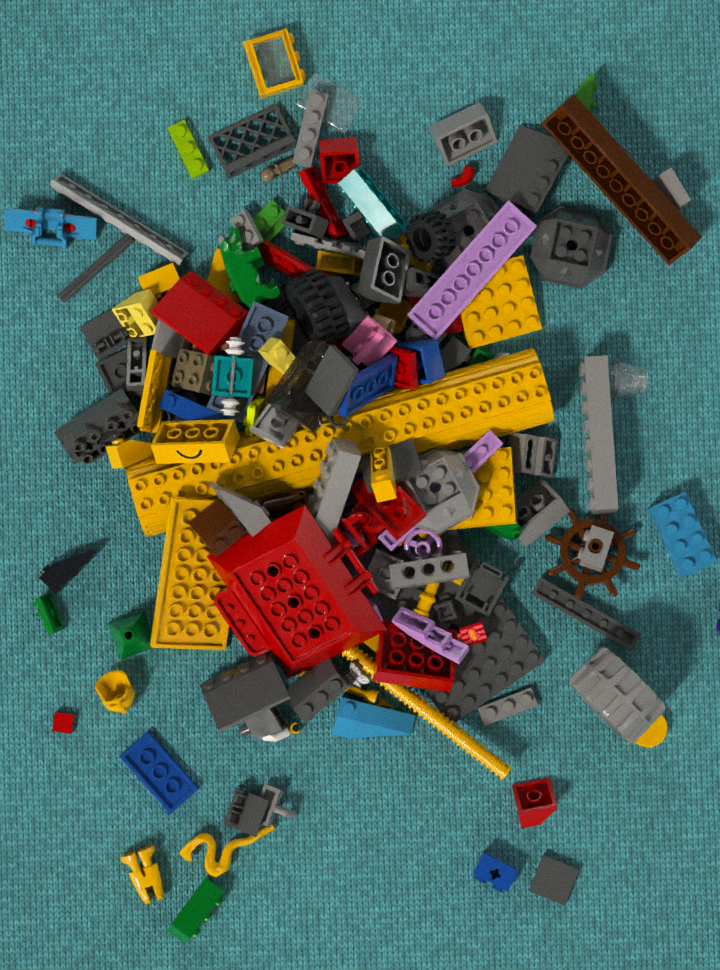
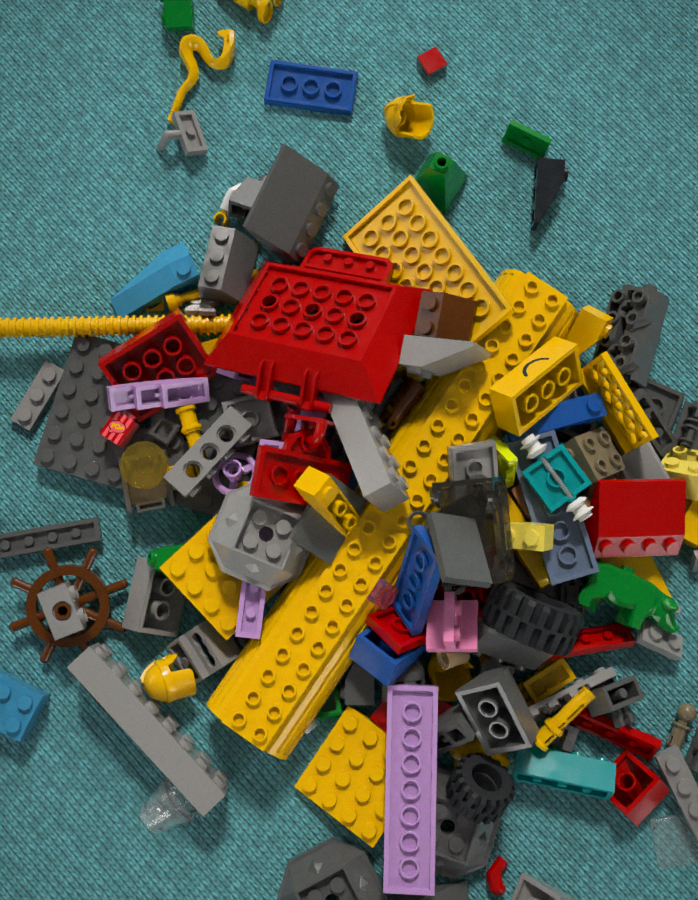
camera: 145 degrees right, 5 degrees down
(246, 812) = (203, 111): dark grey hinge -> none
(269, 221) = (645, 666): bright green plate -> none
(357, 234) = (554, 726): none -> yellow pin
(394, 394) = (383, 594): none -> clear pink plate
(475, 596) = (144, 465): none -> clear yellow tile
(570, 451) = (165, 684): none -> yellow helmet

